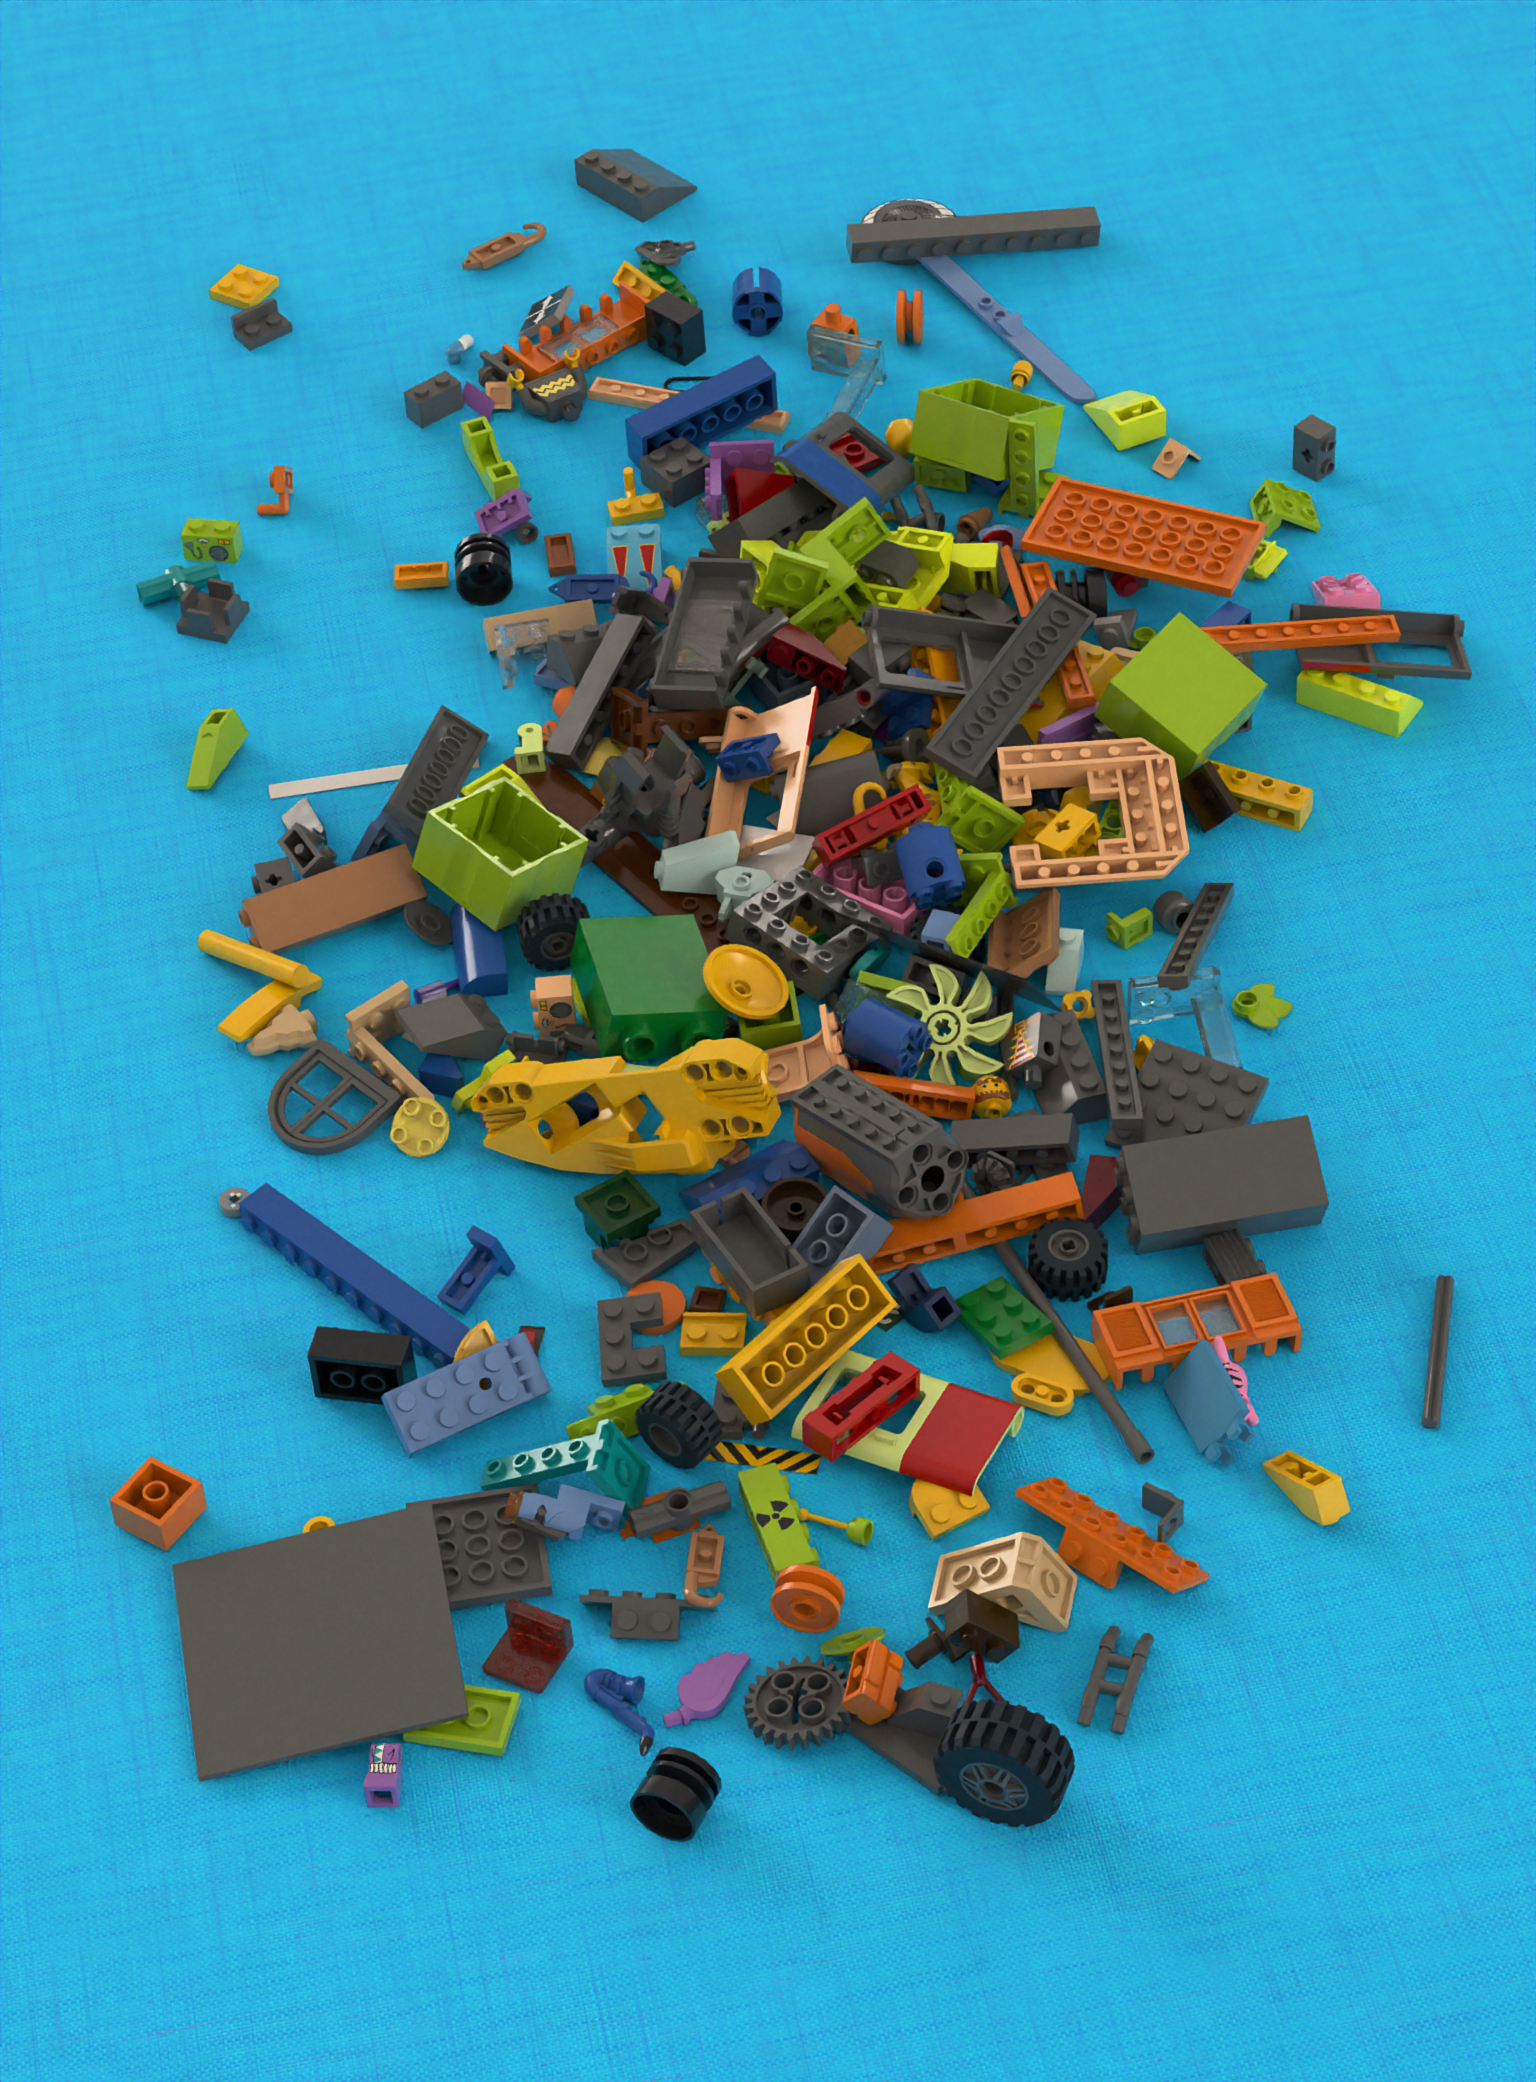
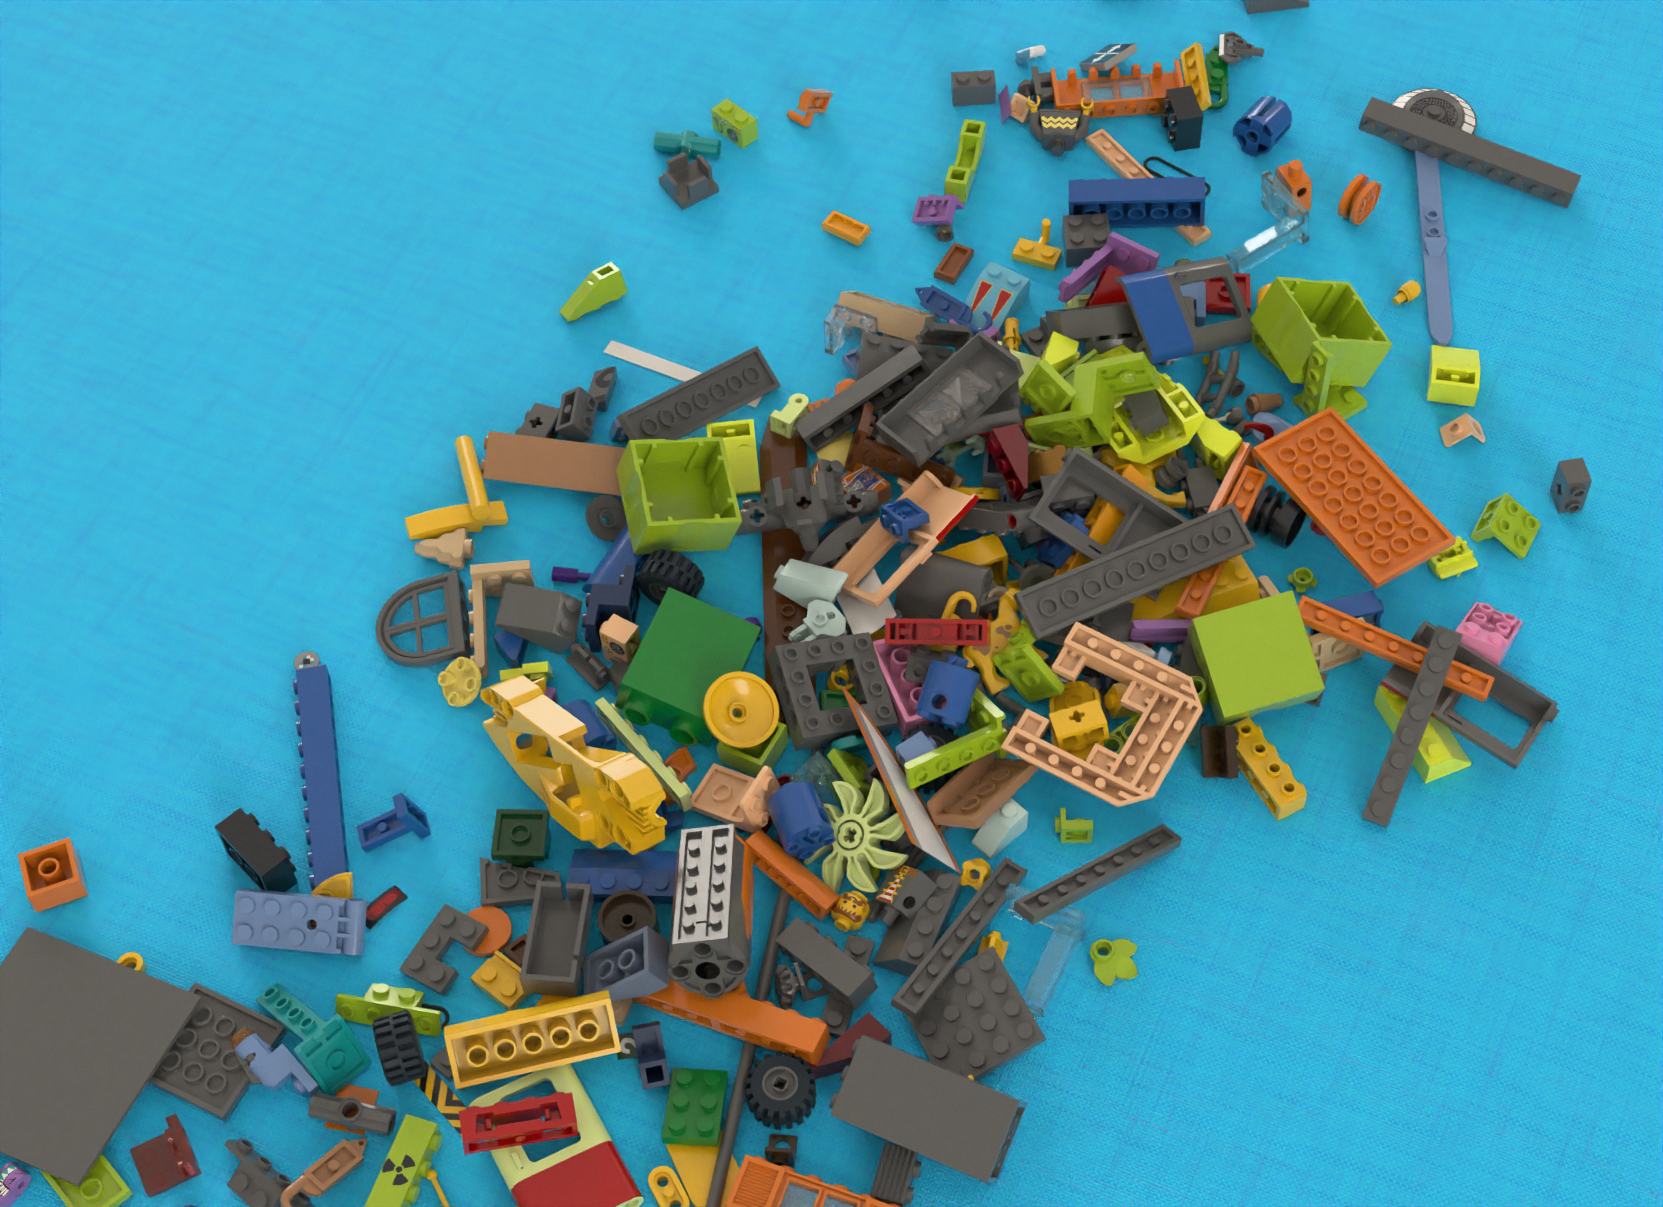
camera: 35 degrees right, 10 degrees up
(483, 569) = (882, 248): black wheel -> none
(512, 981) = (610, 600): none -> dark blue bracket
(1116, 629) = (1285, 562): light grey bracket -> none
(1172, 910) = (1115, 832): dark grey head -> none
(1359, 686) = (1411, 726): none -> dark grey plate

